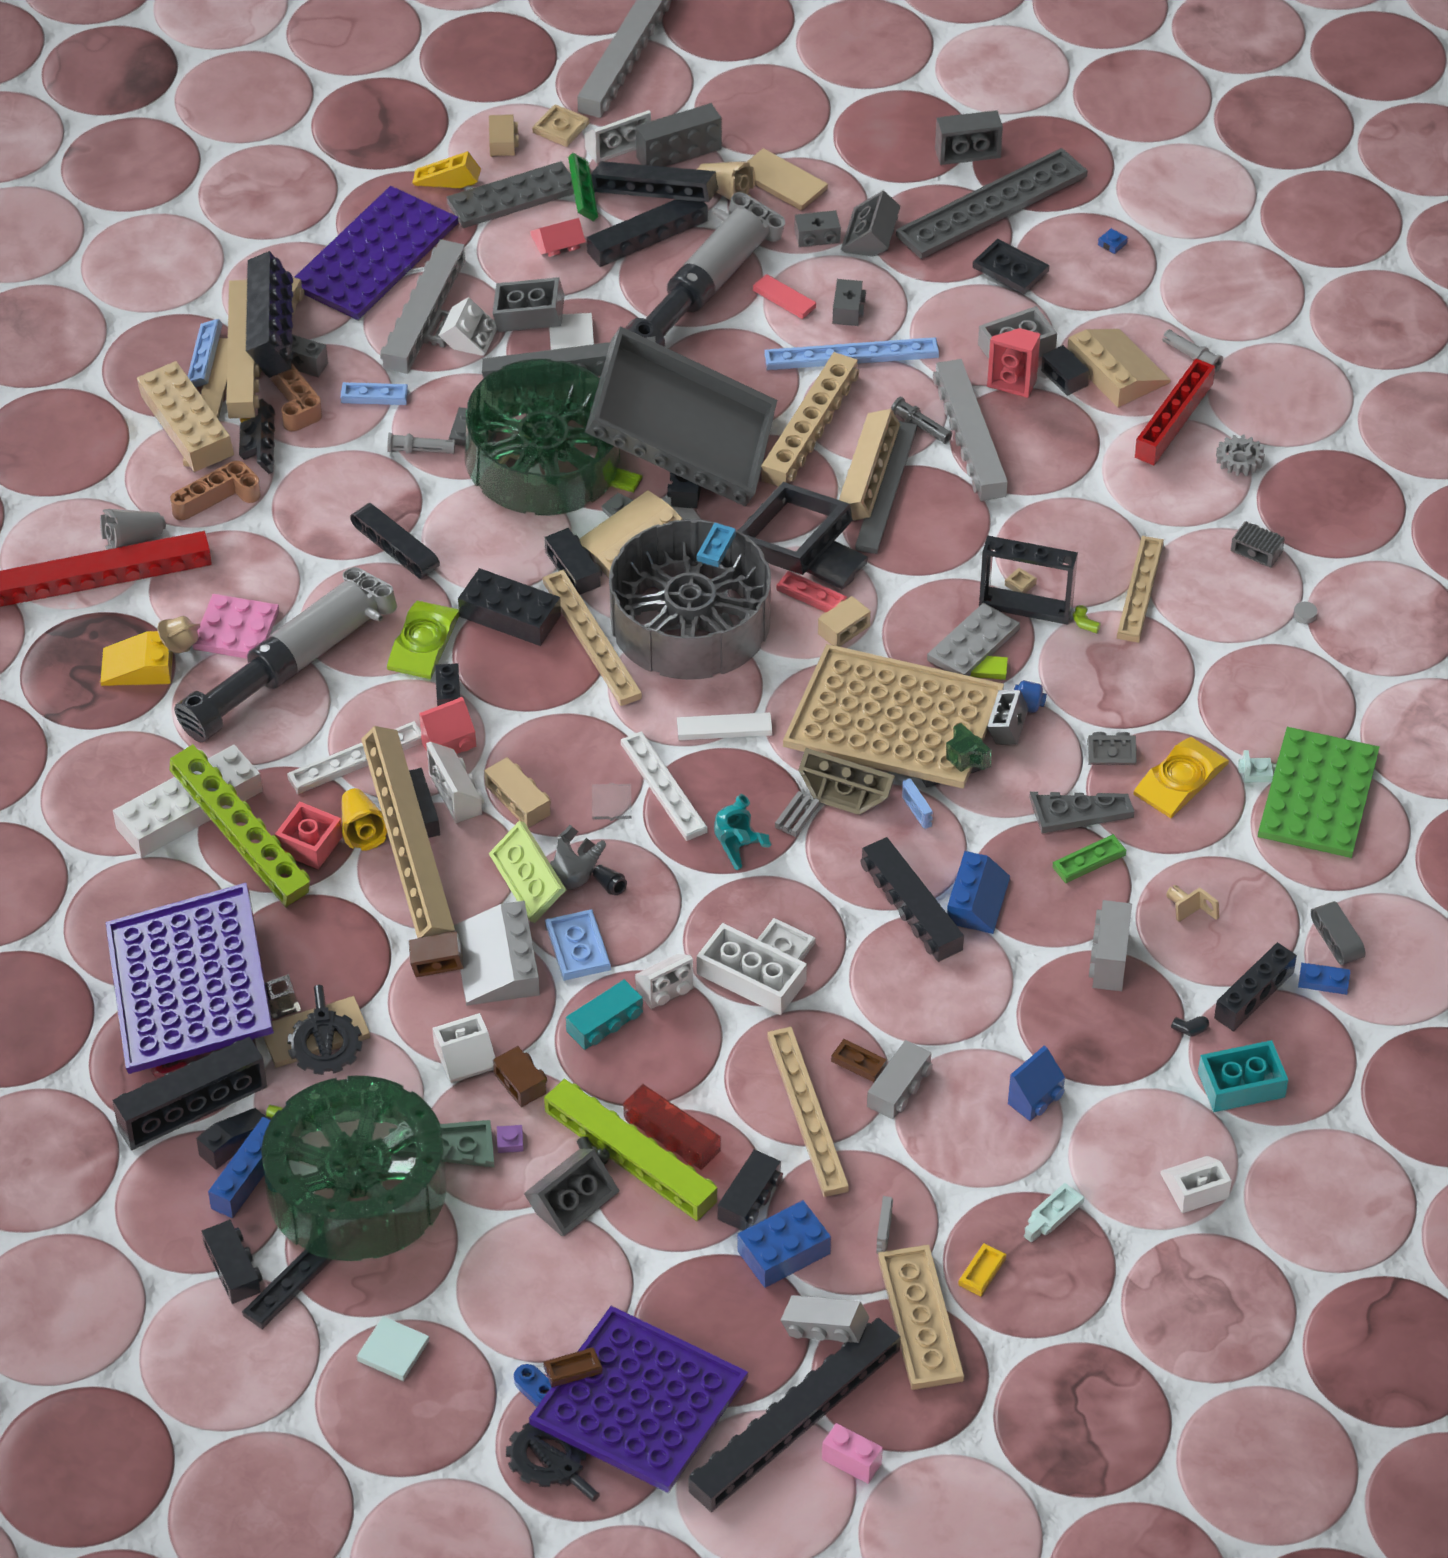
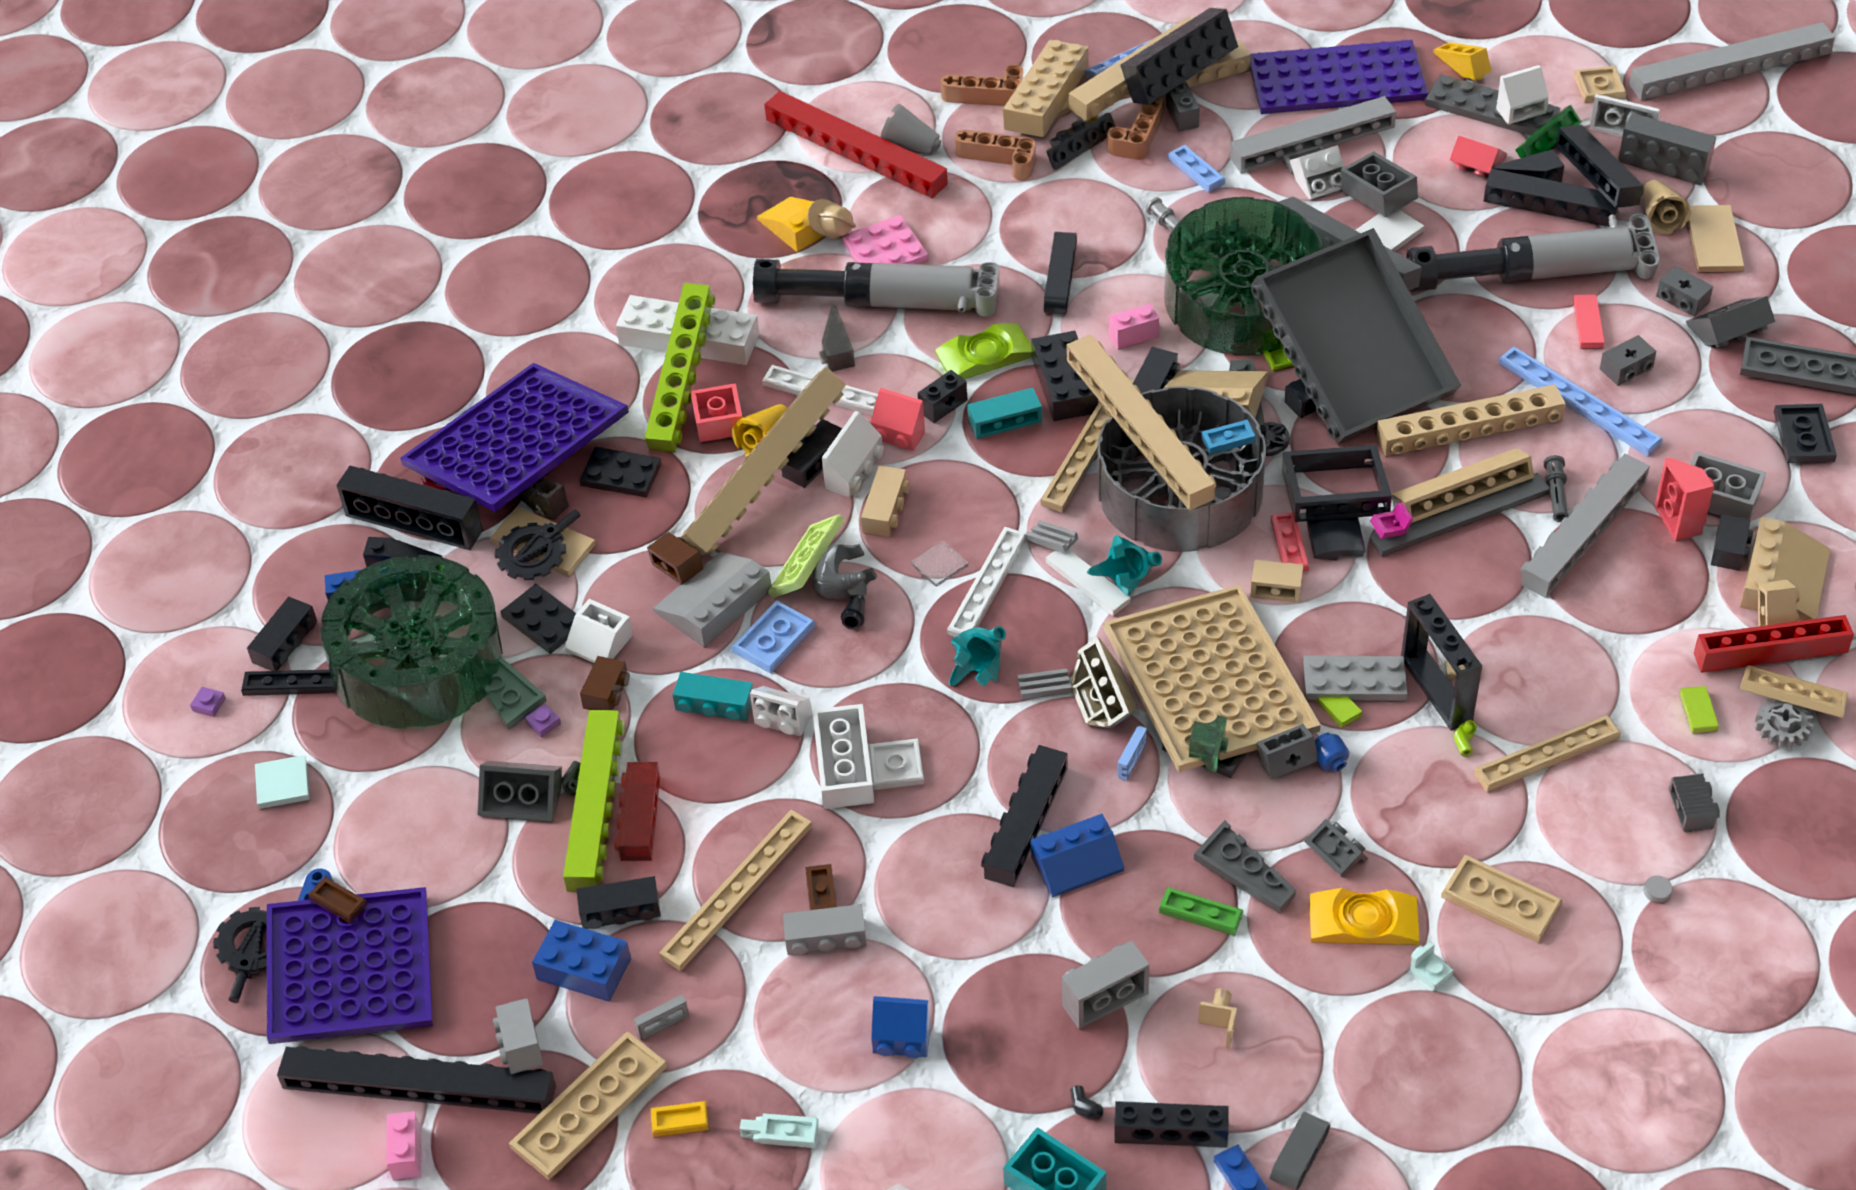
camera: 55 degrees right, 0 degrees up
(146, 446) = (981, 89): none -> nougat beam
(246, 1355) = (207, 701): none -> medium lavender plate
(294, 938) = (620, 471): none -> black plate
(313, 719) = (836, 346): none -> clear smoke slope
(413, 1071) = (540, 618): none -> black plate
(501, 135) = (1546, 54): tan brick -> none
(505, 535) = (1134, 326): none -> bright pink brick
(506, 666) = (1004, 413): none -> teal brick
(540, 168) = (1522, 95): none -> white slope
(612, 211) = (1540, 165): none -> black slope
(645, 581) = (1141, 422): none -> tan brick
(661, 716) = (1054, 534): none -> light grey tile
(744, 692) = (1126, 564): none -> teal piece
(864, 521) = (1392, 523): none -> dark pink bracket
(1151, 385) = (1777, 603): none -> tan brick
(1183, 488) = (1699, 709): none -> lime tile
(1221, 430) = (1794, 691): none -> tan tile
(1234, 695) = (1501, 898): none -> tan tile
(1318, 792) = (1457, 1033): bright green plate -> none

